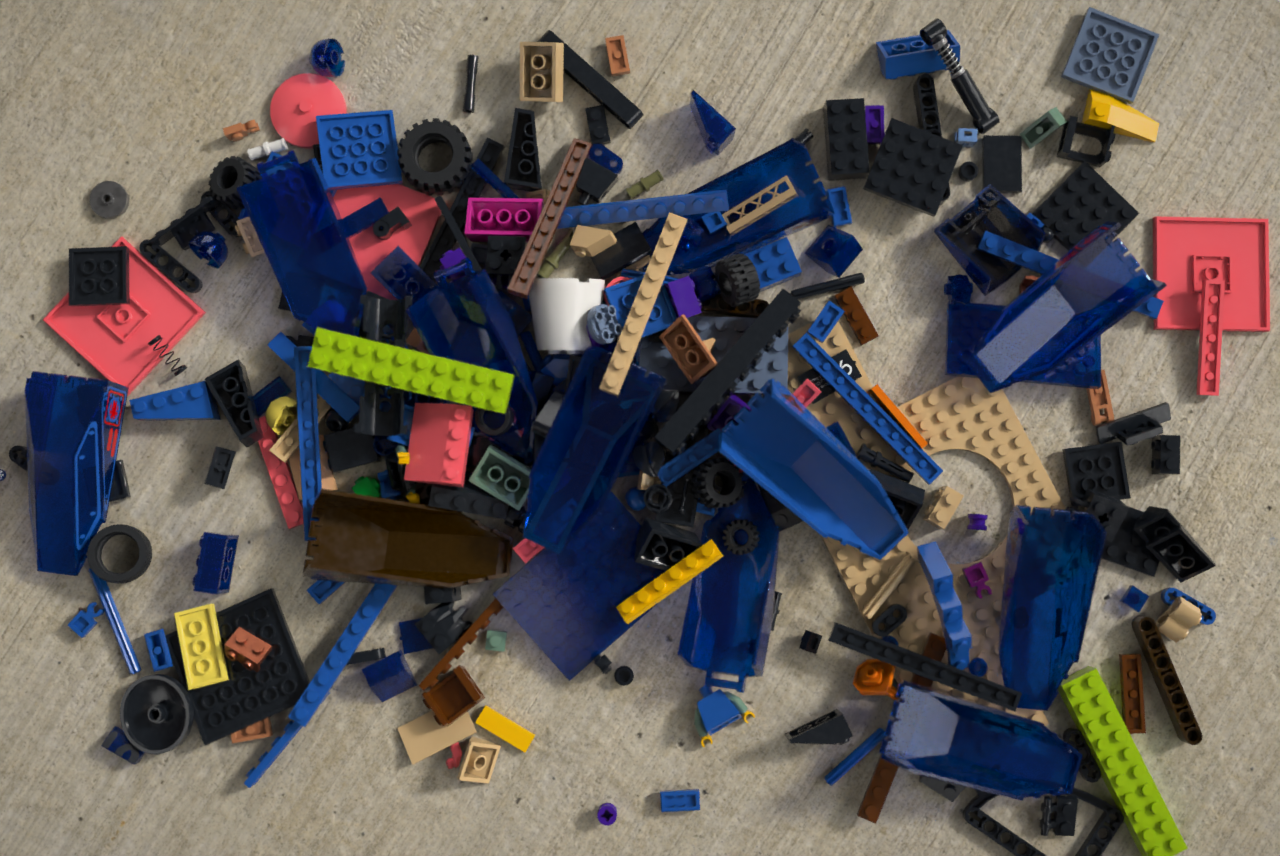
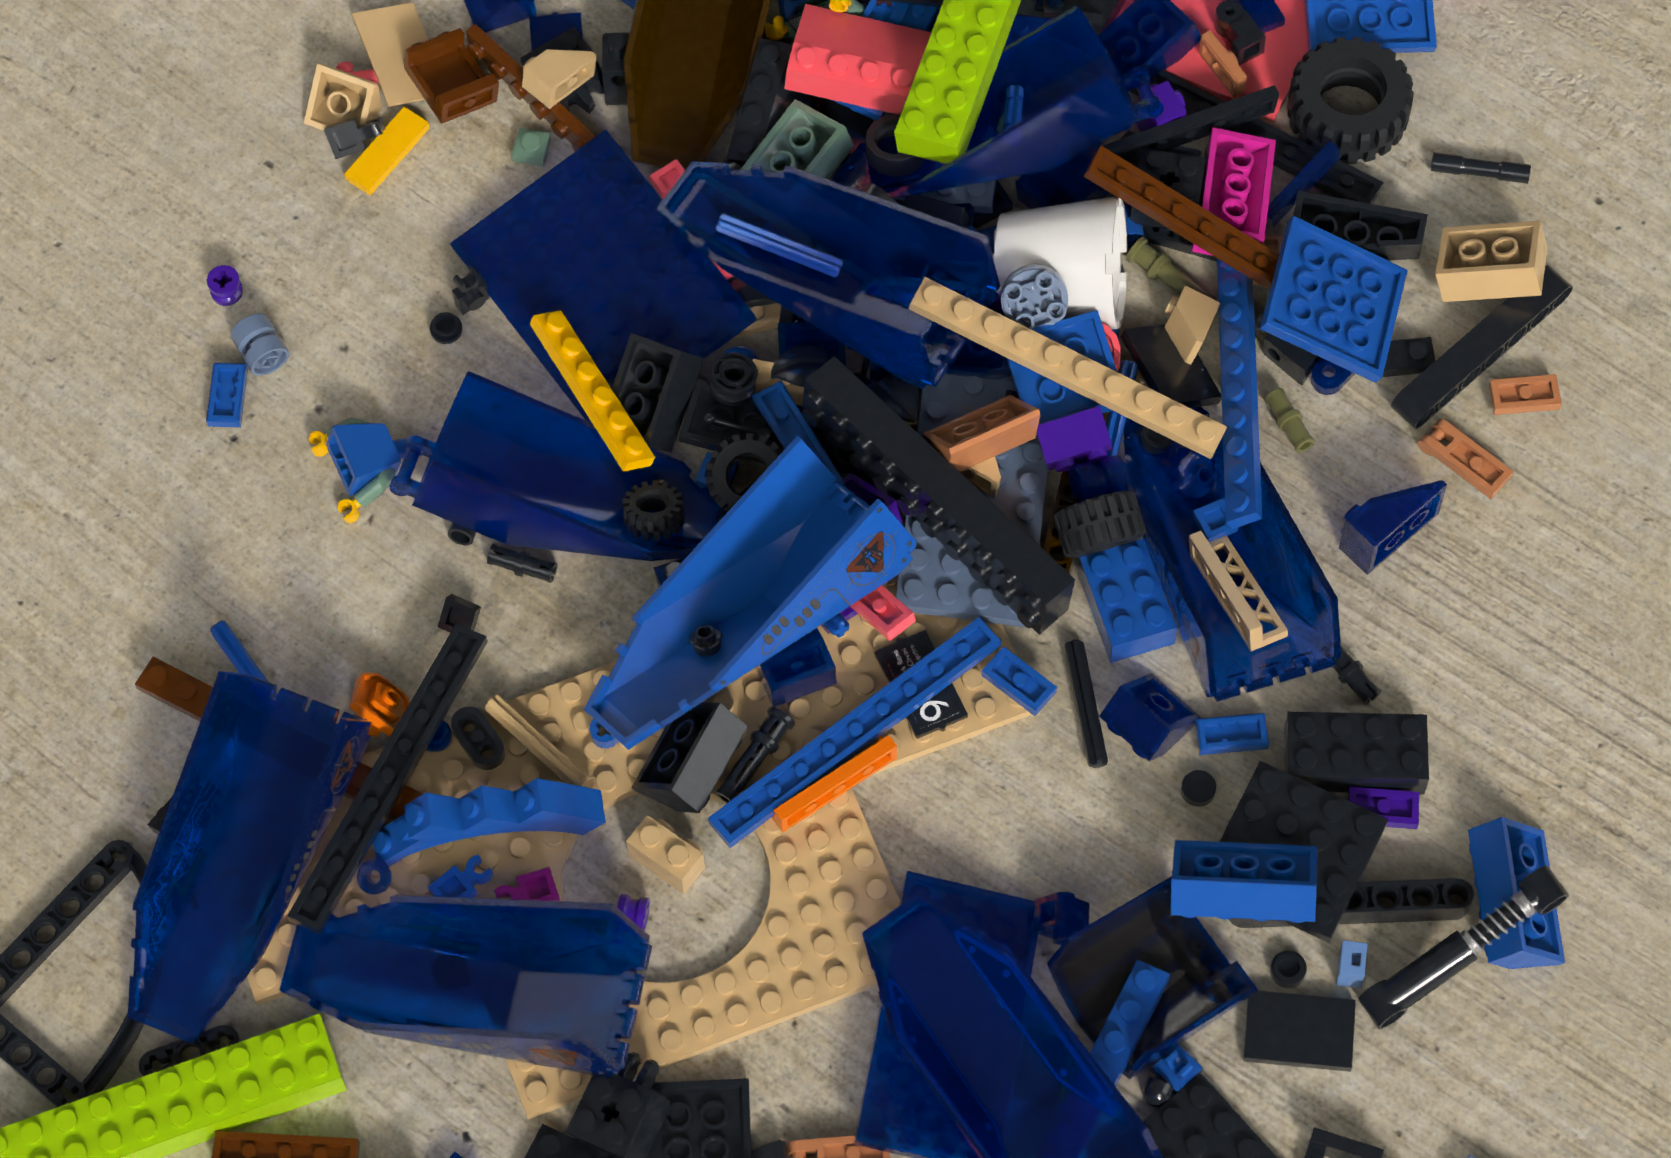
camera: 100 degrees right, 20 degrees down
(414, 231) = (1223, 64): none -> nougat plate
(455, 630) = (557, 74): none -> tan slope
(467, 350) = (1013, 106): none -> blue axle
(501, 751) = (349, 137): none -> black plate
(574, 478) = (779, 245): none -> blue axle
(575, 158) = (1334, 299): none -> blue plate
(647, 786) = (259, 344): none -> sand blue wheel
(660, 86) = (1466, 458): none -> nougat plate
(824, 730) = (305, 625): black slope -> none
(834, 495) = (706, 640): none -> black plate
(856, 316) = (1029, 748): reddish brown plate -> none
(871, 223) = (1198, 788): none -> black tile
(942, 188) = (1244, 881): none -> blue slope
(979, 619) = (461, 884): none -> blue plate
(1043, 127) = (1366, 1108): sand green slope -> none
(1064, 815) = (91, 1009): black plate -> none

